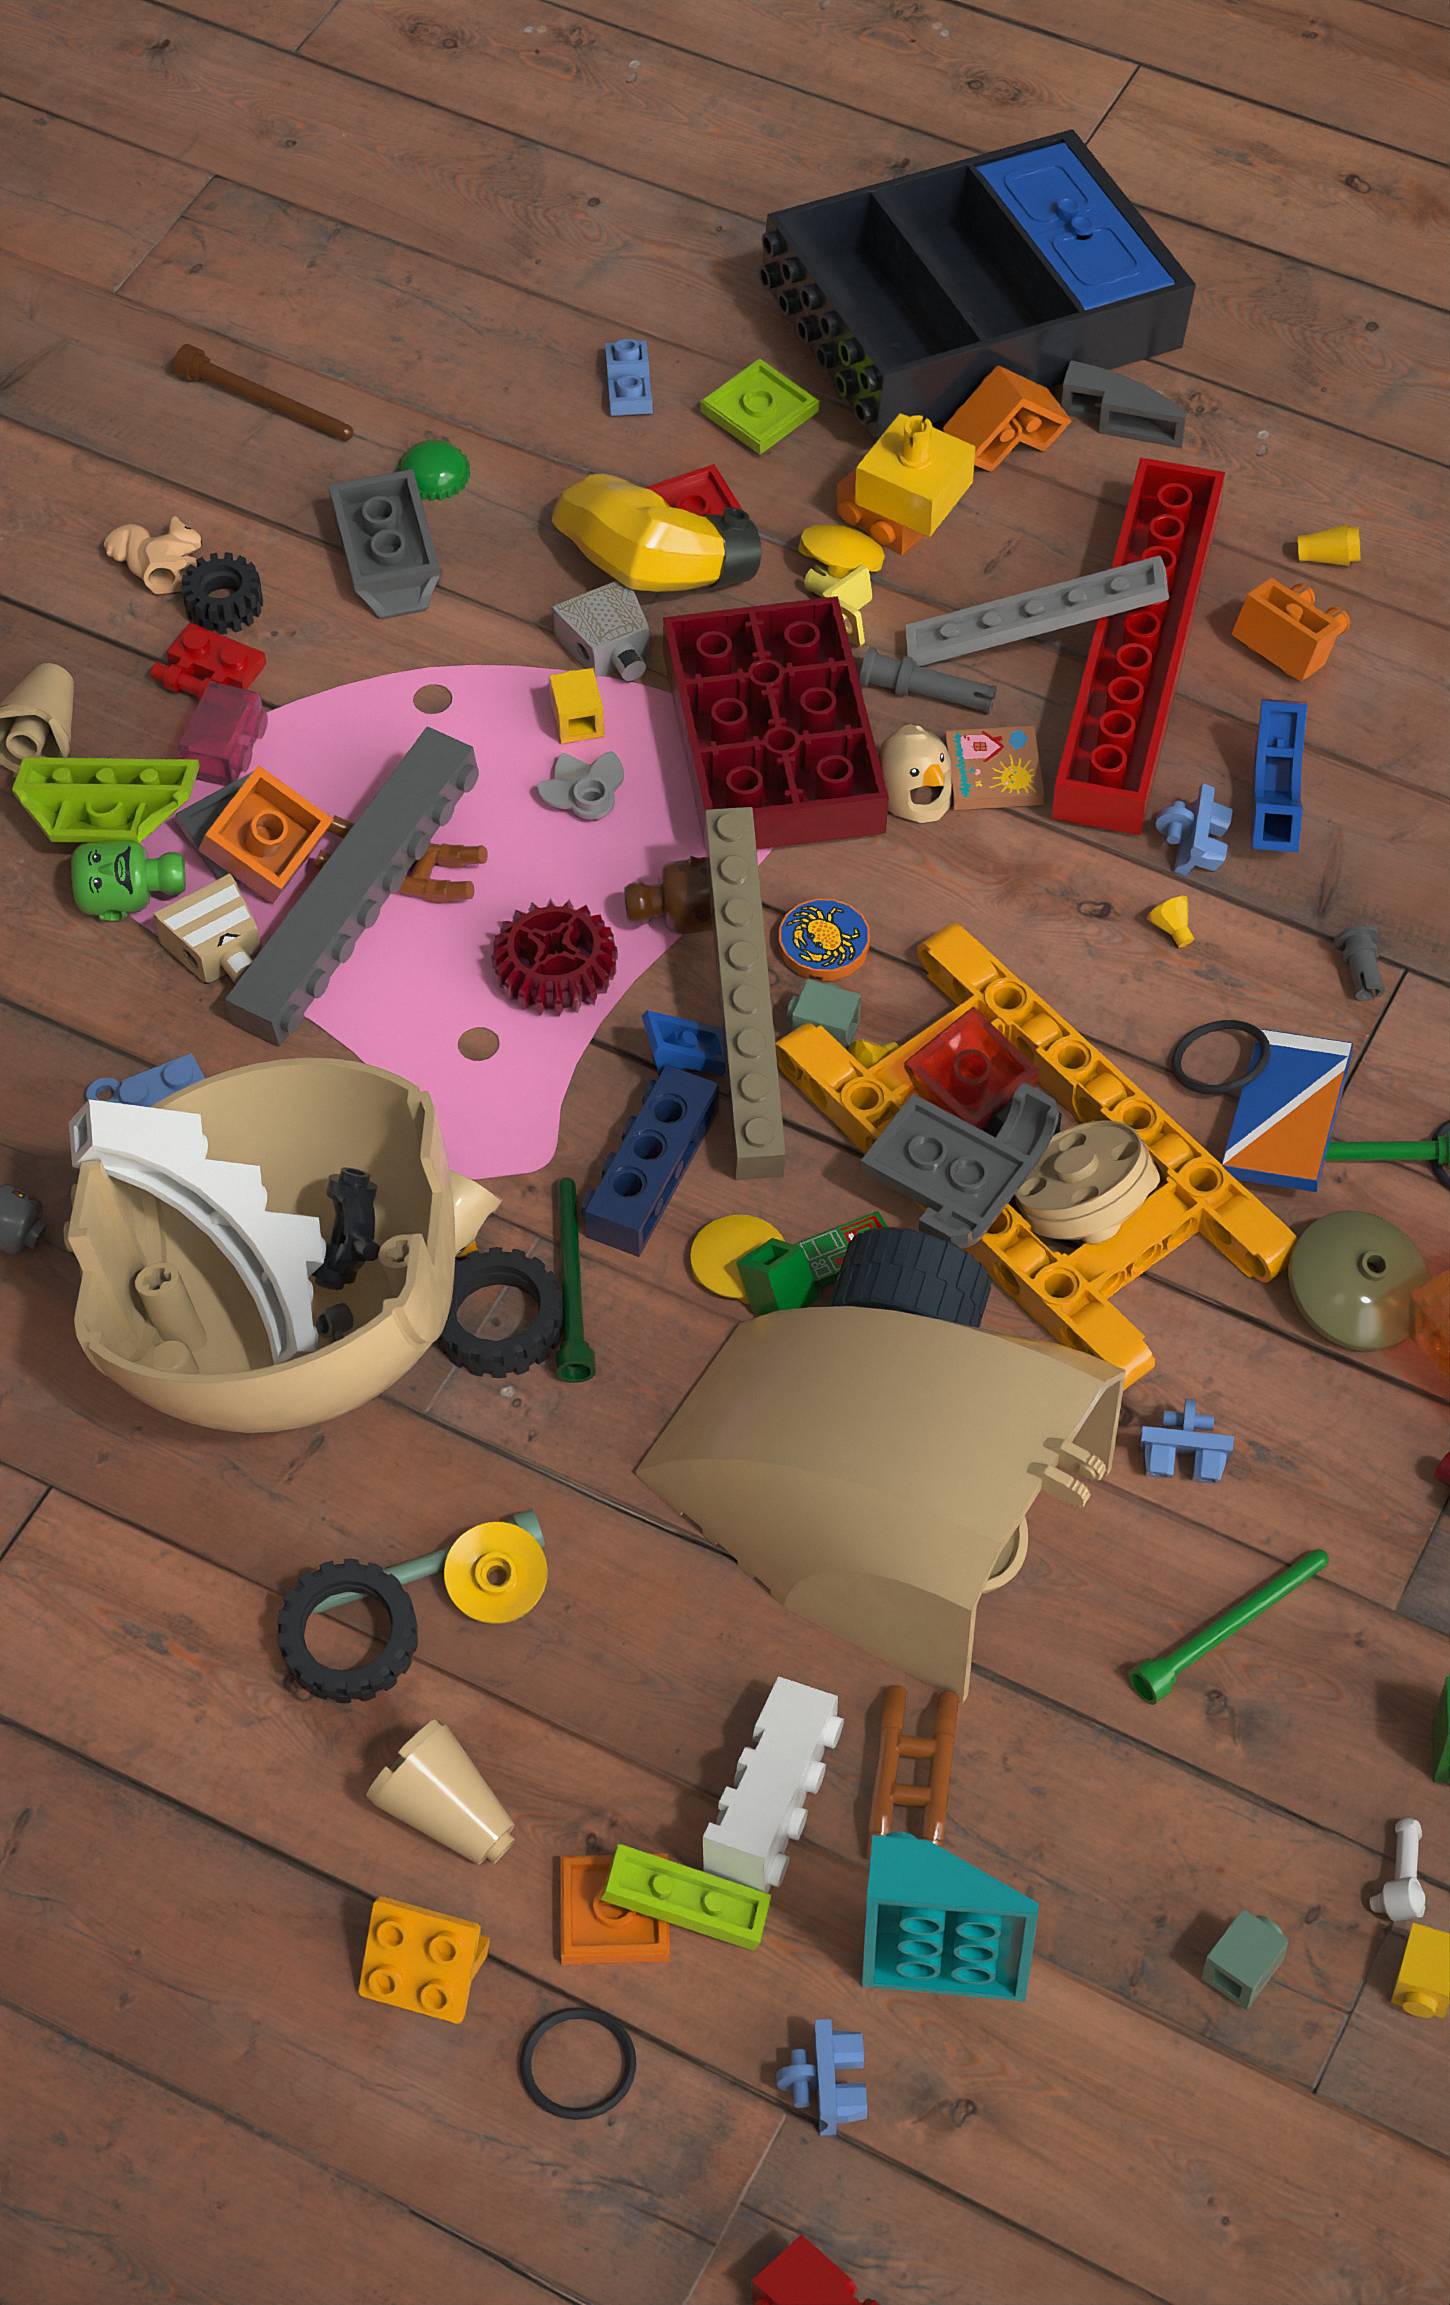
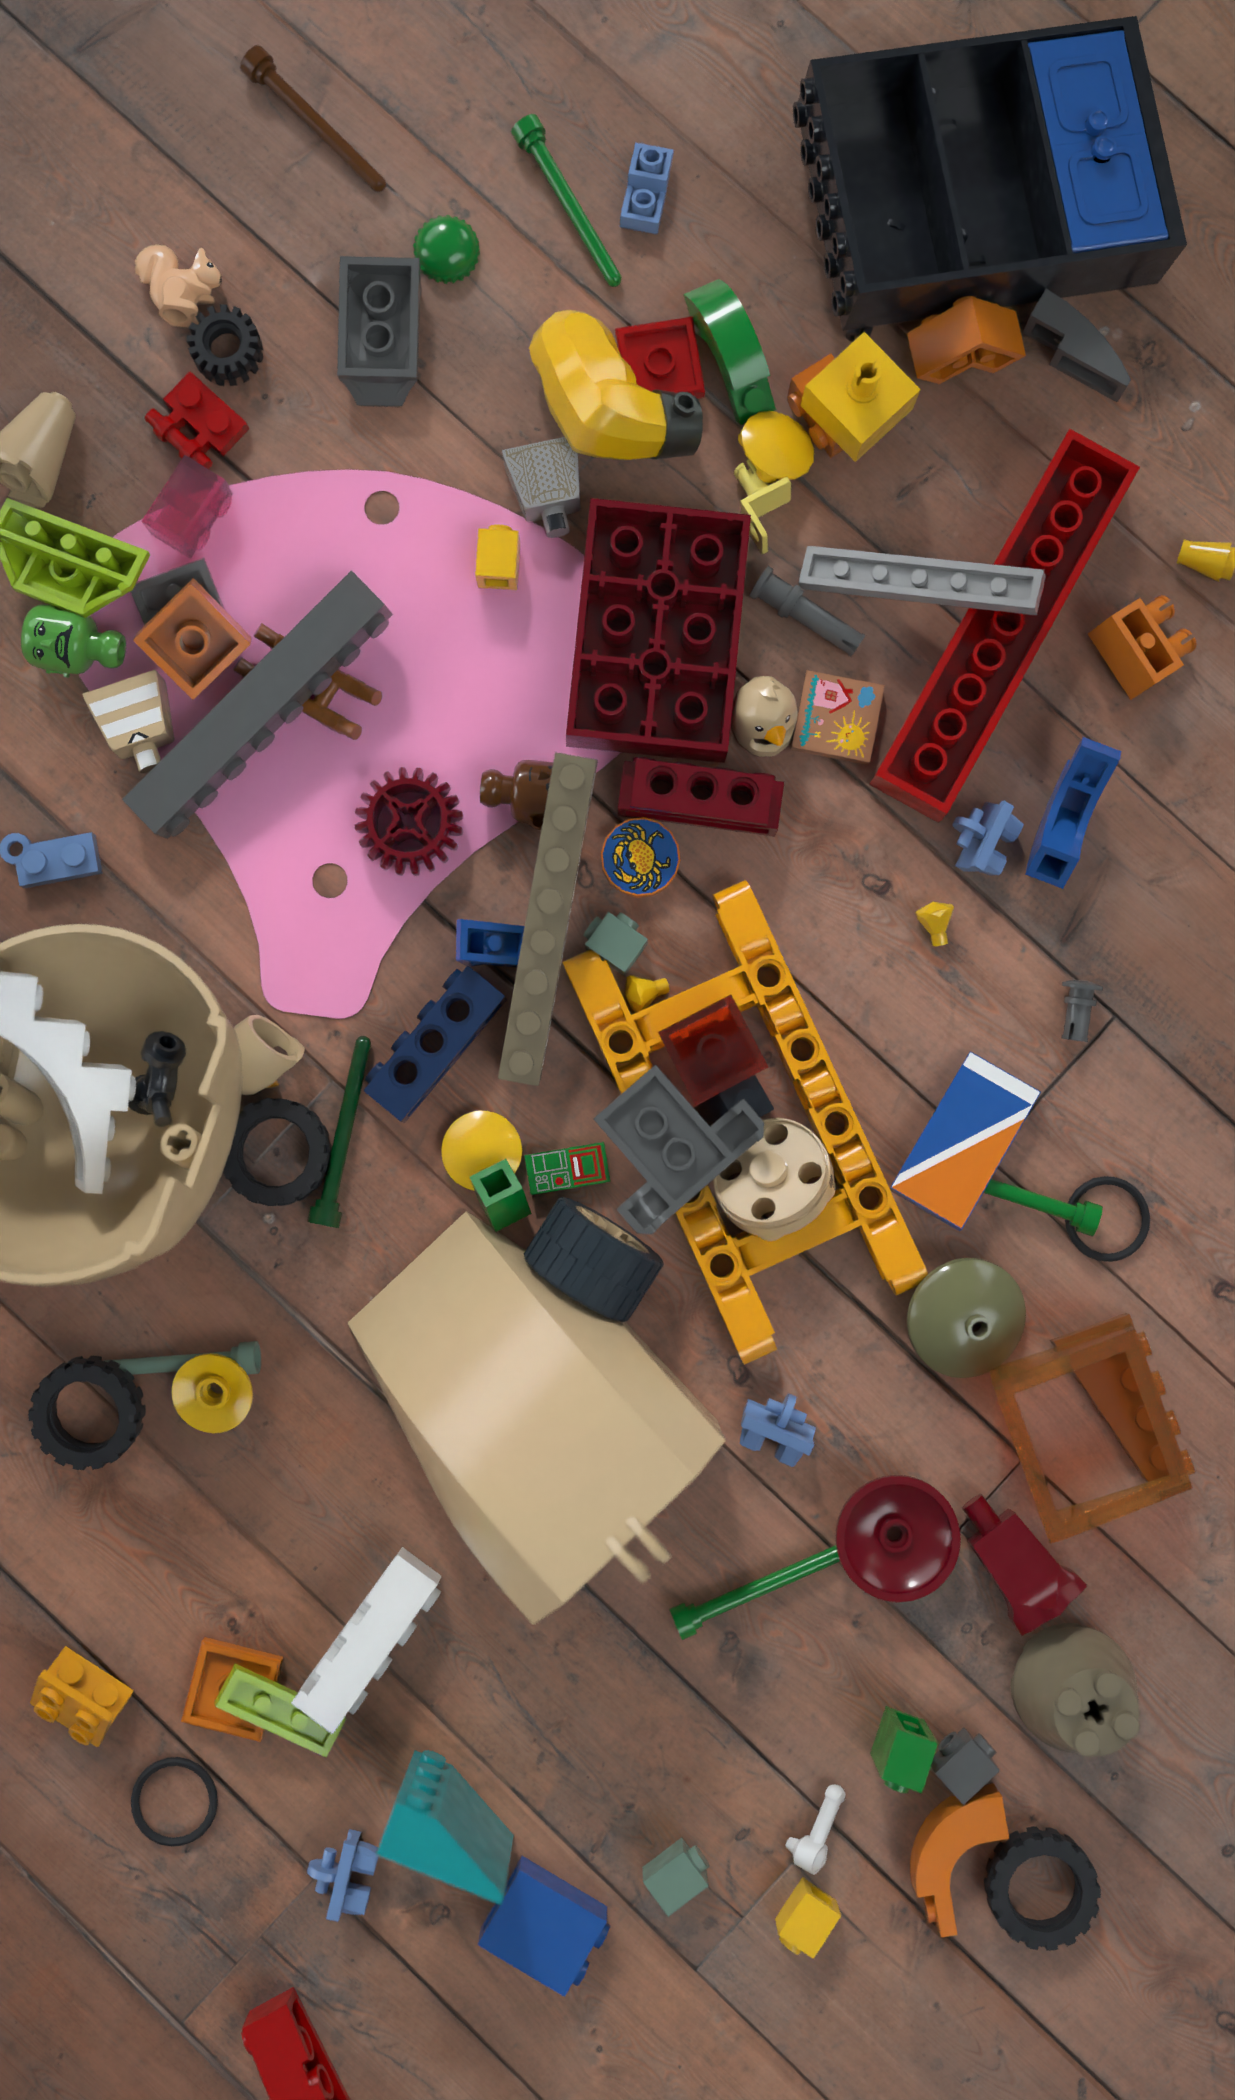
camera: 15 degrees right, 30 degrees up
(334, 1322) = (134, 1143): dark grey hand -> none
(444, 1796) = (122, 1578): tan cone -> none
(494, 360) = (530, 136): none -> green piece
(584, 787) = (482, 638): light grey plate -> none
(759, 406) = (754, 255): lime plate -> none
(772, 471) = (734, 343): none -> green arch
(873, 865) = (716, 812): none -> dark red brick
(894, 1744) = (457, 1661): dark orange piece -> none
(1102, 2070) = (544, 1927): none -> blue brick
(1227, 1087) = (934, 1107): black tyre -> none
(1372, 1488) = (915, 1560): none -> dark red dish

